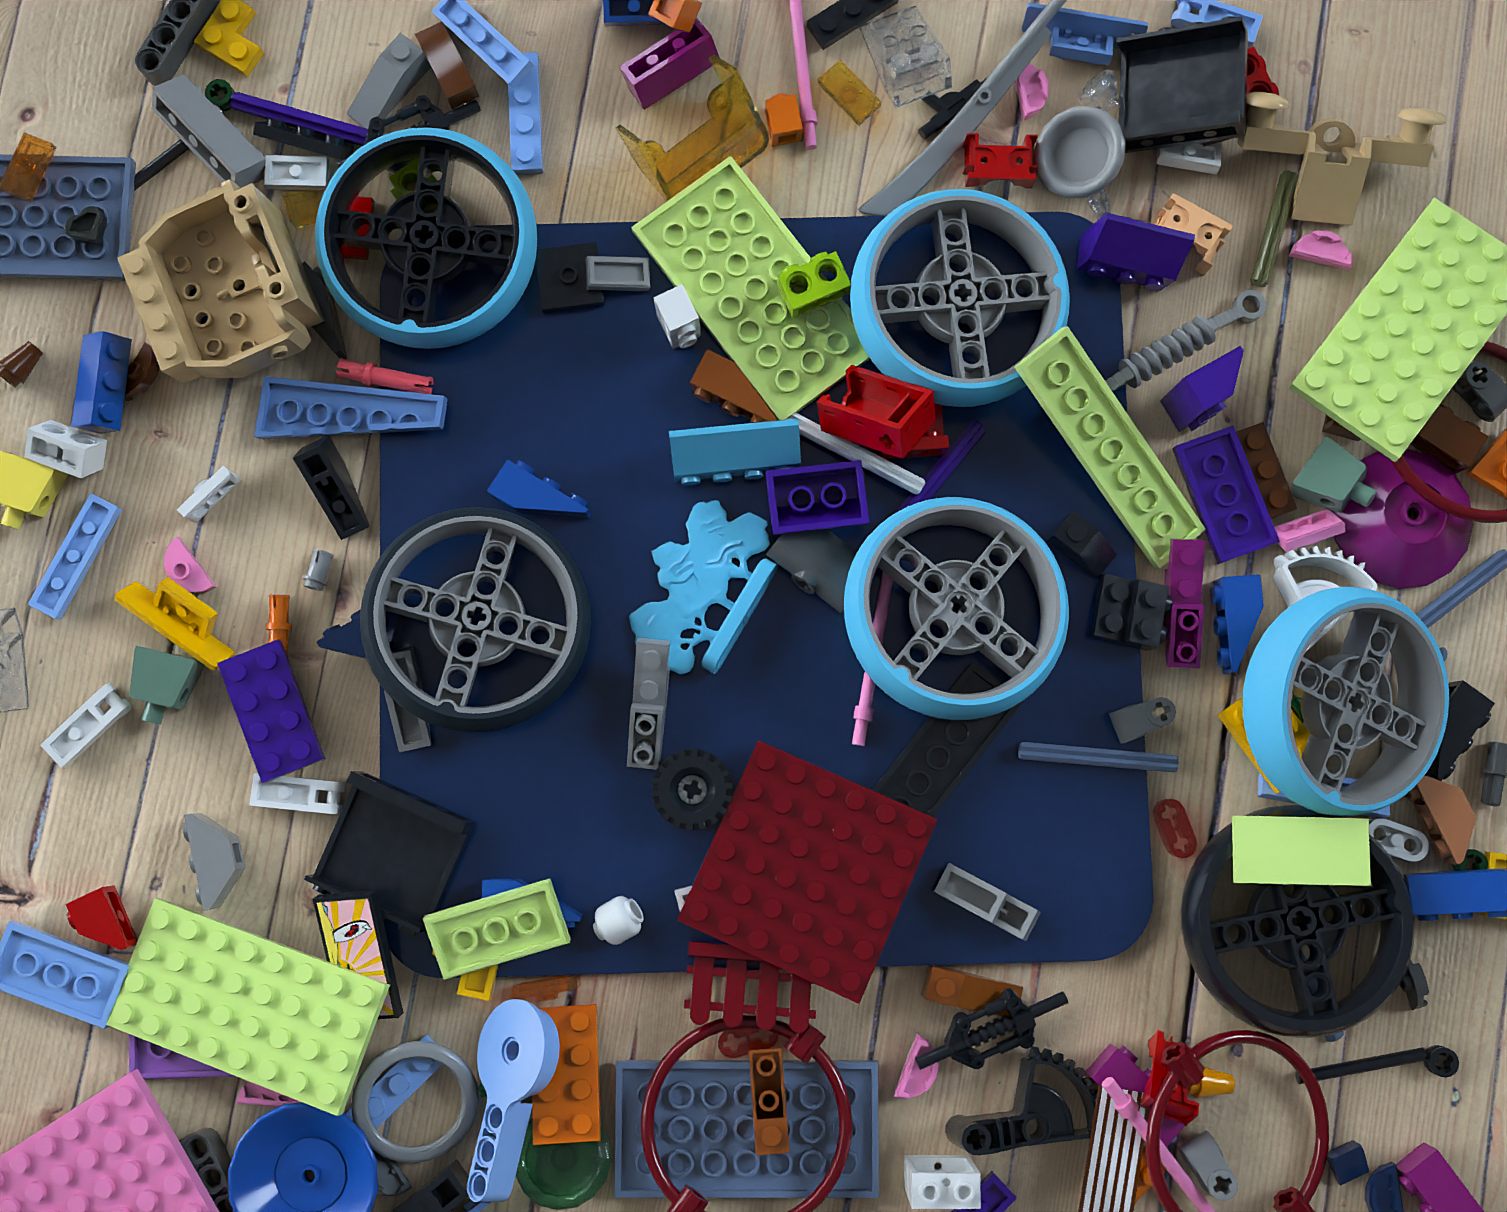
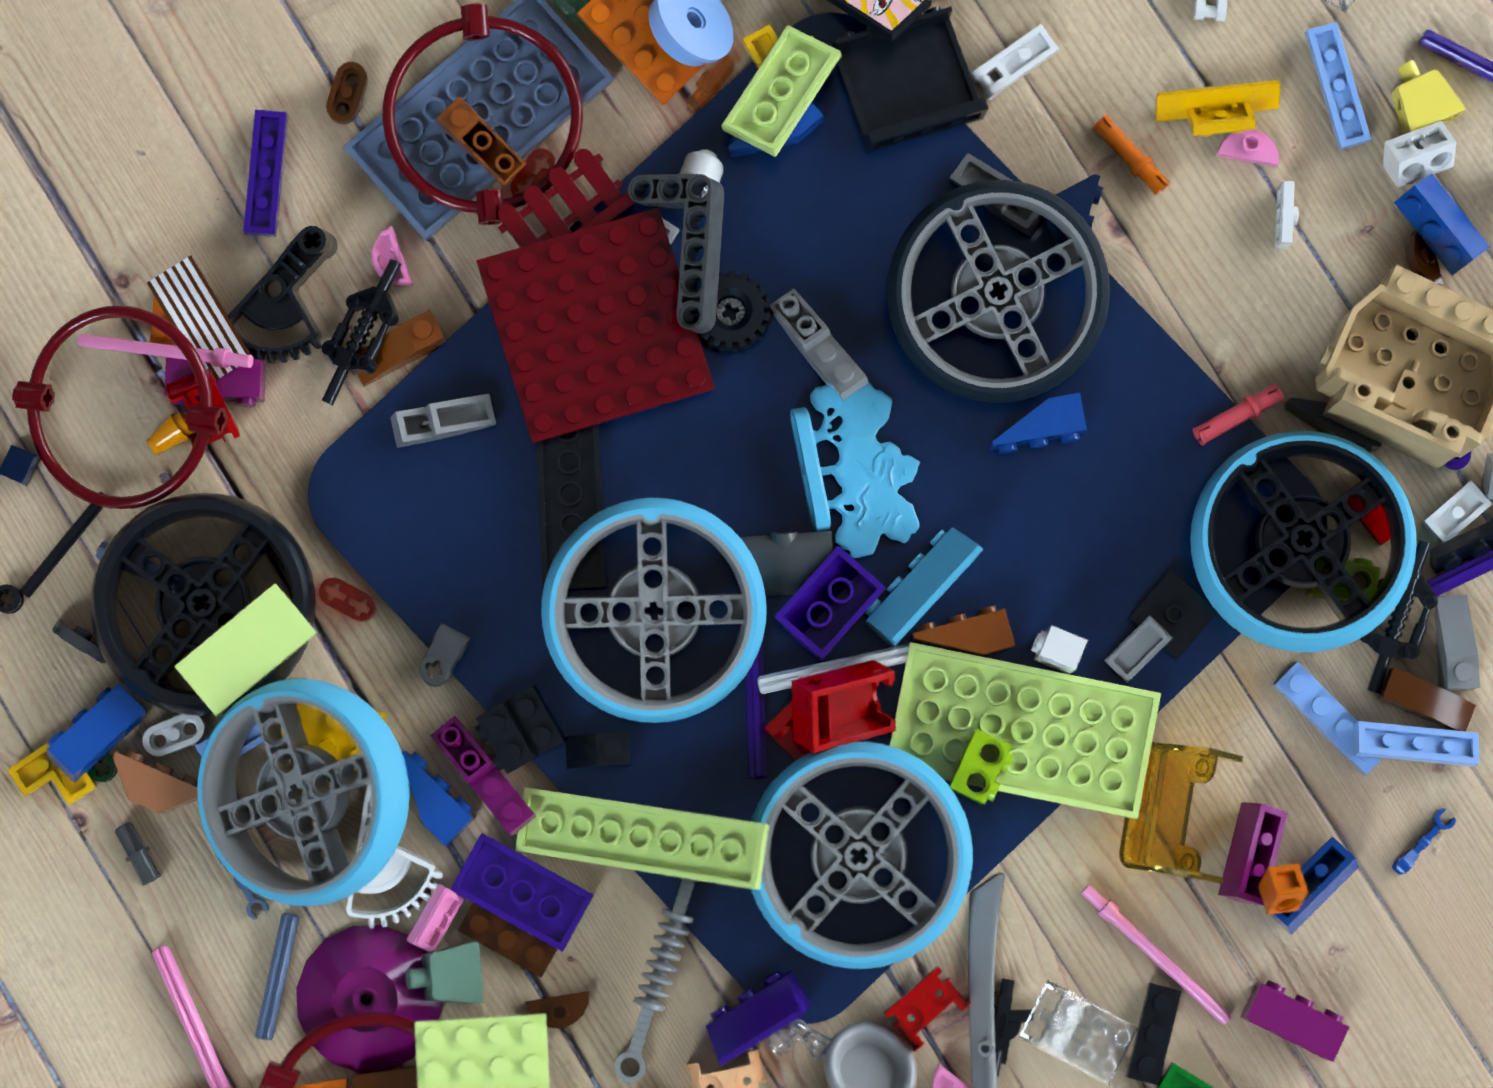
camera: 135 degrees right, 0 degrees up
(162, 681) = (1187, 54): sand green torso -> none
(271, 711) = (1087, 101): dark purple plate -> none
(301, 207) = (1426, 491): clear yellow slope -> none
(318, 570) = (1152, 231): light grey pin -> none
(321, 409) = (1263, 349): medium blue wing -> none
(332, 486) = (1202, 301): black slope -> none
(674, 868) = (693, 239): none -> dark grey beam
(783, 119) = (1126, 890): orange brick -> none
(849, 92) = (1095, 961): clear yellow plate -> none
(864, 712) = (654, 479): bright pink bar -> none
(950, 1187) = (304, 189): white window -> none
(1098, 757) = (450, 599): sand blue axle -> none
(1203, 392) = (608, 947): dark purple slope -> none
(1207, 1163) = (125, 375): light grey piece -> none
(1268, 389) = (560, 1010): none -> reddish brown plate
(1466, 714) = (202, 872): black slope -> none

